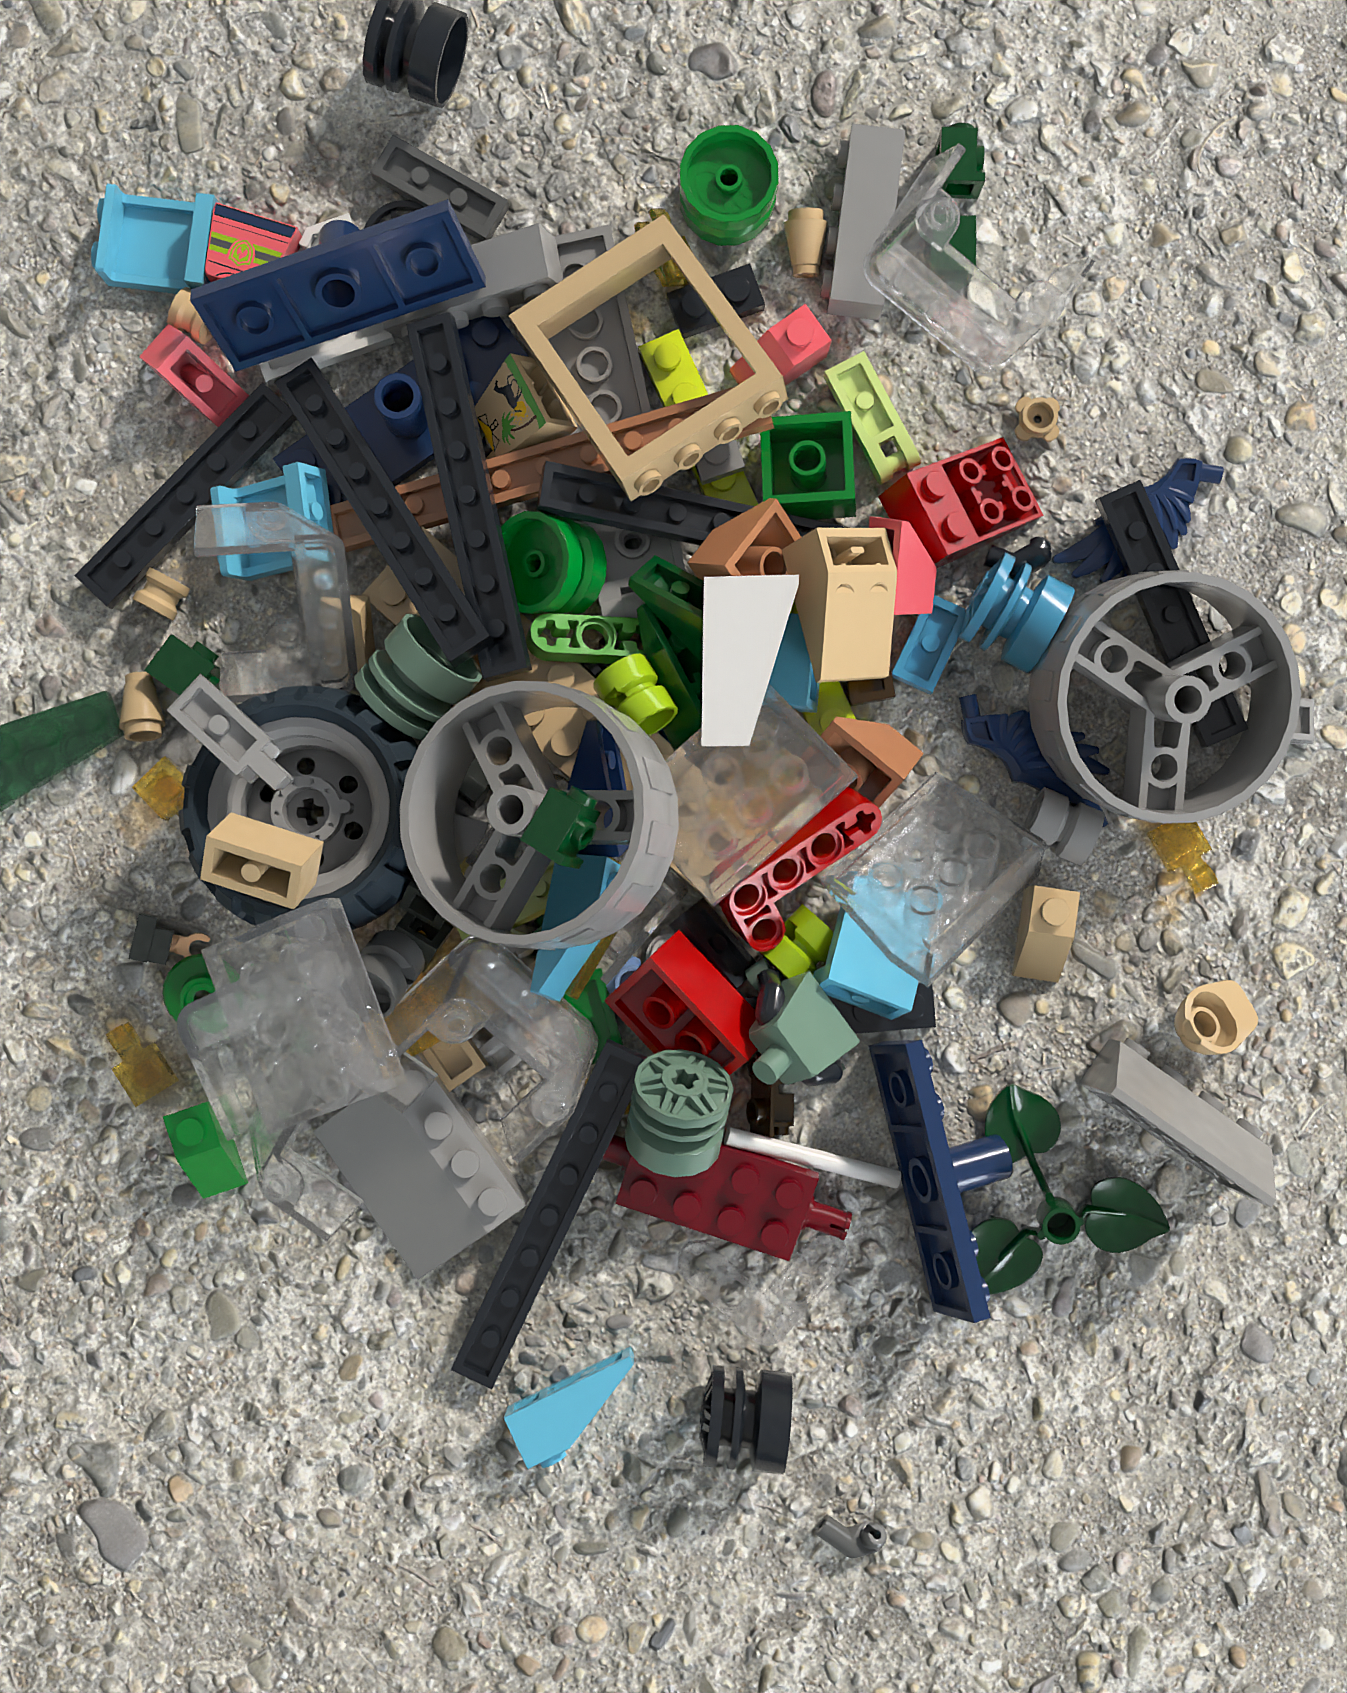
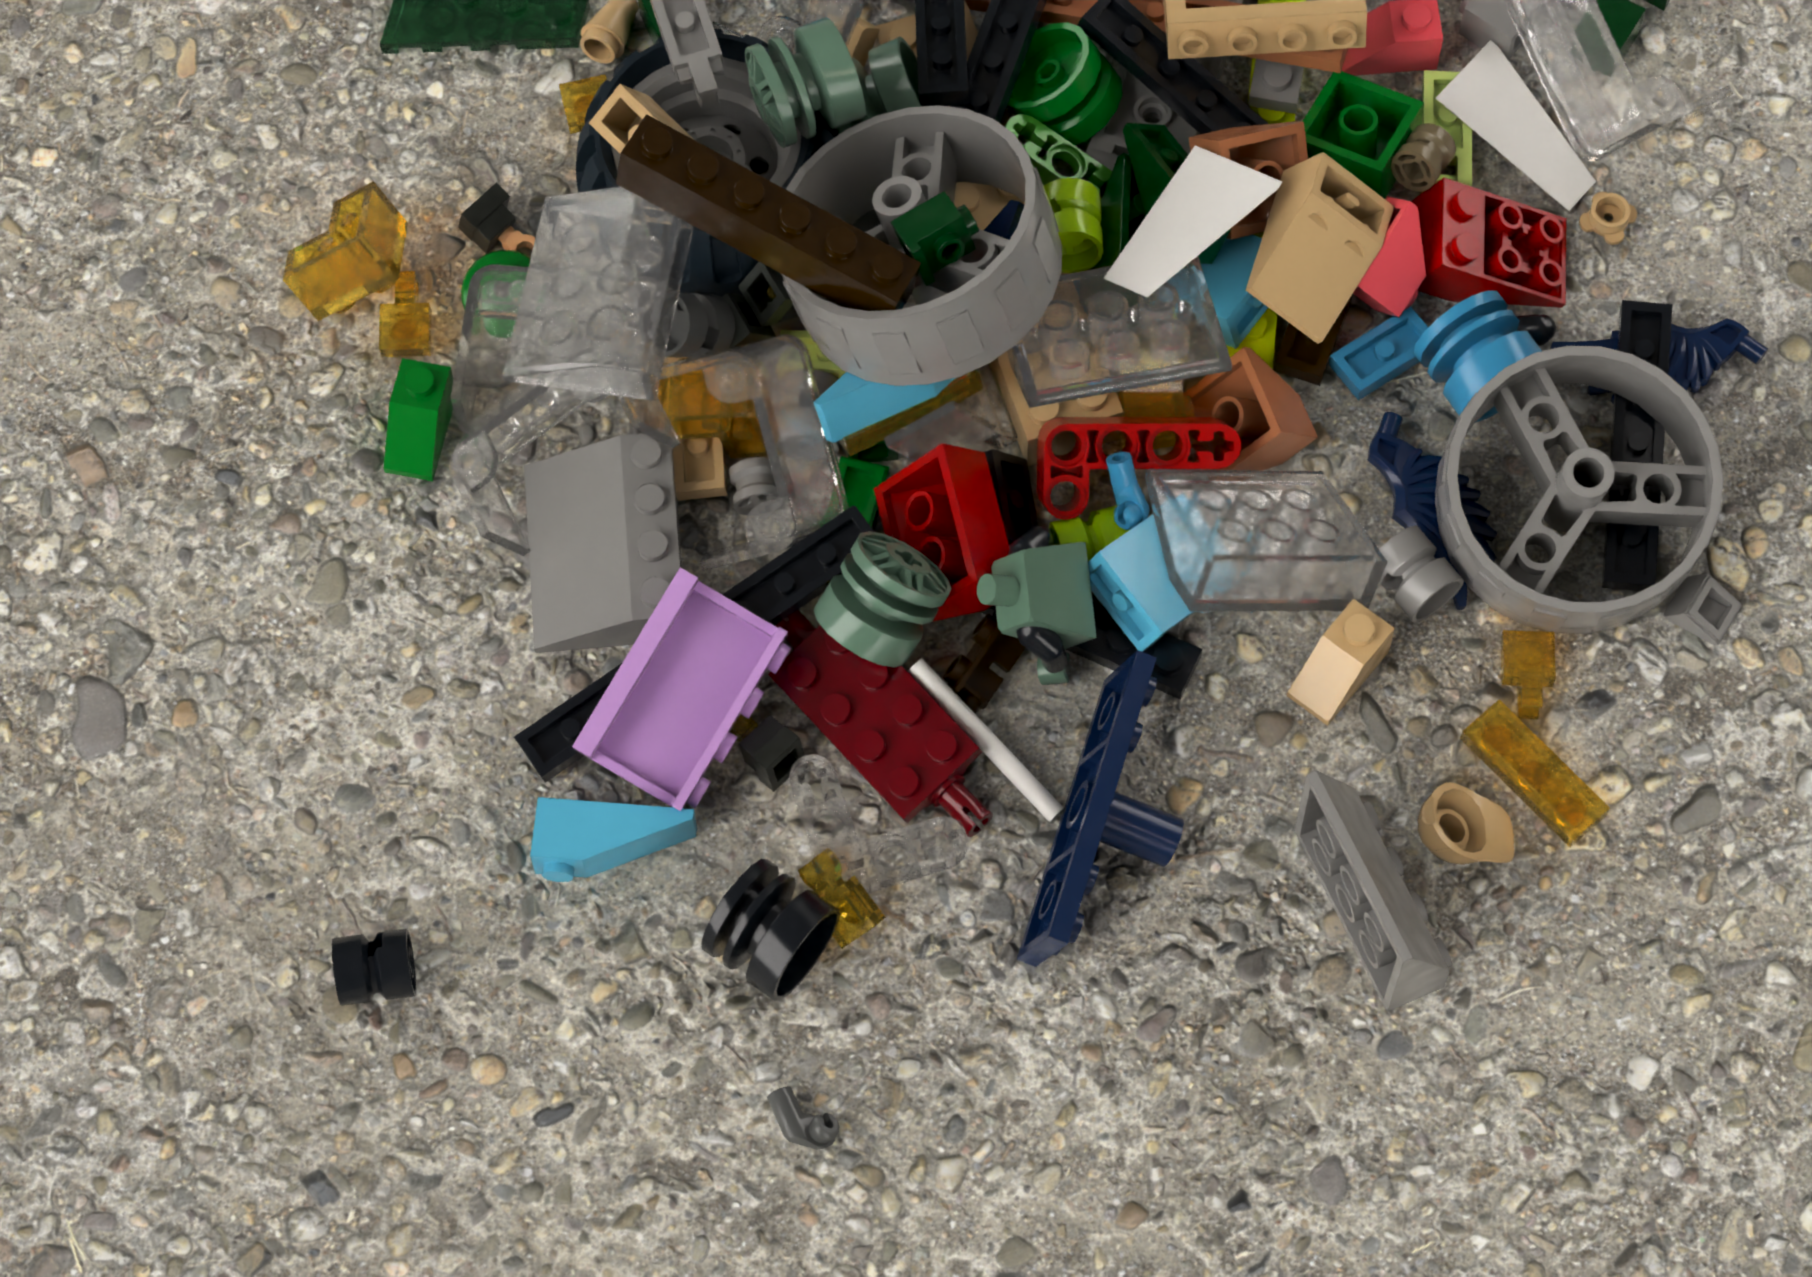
camera: 35 degrees right, 20 degrees down
(65, 1044) = (352, 258): none -> clear yellow brick
(359, 734) = (813, 79): none -> sand green wheel
(414, 900) = (764, 220): none -> dark brown brick
(455, 1622) = (374, 967): none -> black wheel
(565, 1270) = (682, 692): none -> lavender panel
(652, 1261) = (768, 748): none -> pearl dark grey piece
(788, 1355) = (856, 906): none -> clear yellow plate
(815, 904) = (1128, 495): none -> dark azure arm
(875, 455) = (1423, 157): none -> dark tan wheel
(918, 377) = (1507, 116): none -> white sticker
(1117, 1221) = (1119, 945): dark green plant -> none
(1238, 937) = (1534, 773): none -> clear yellow plate

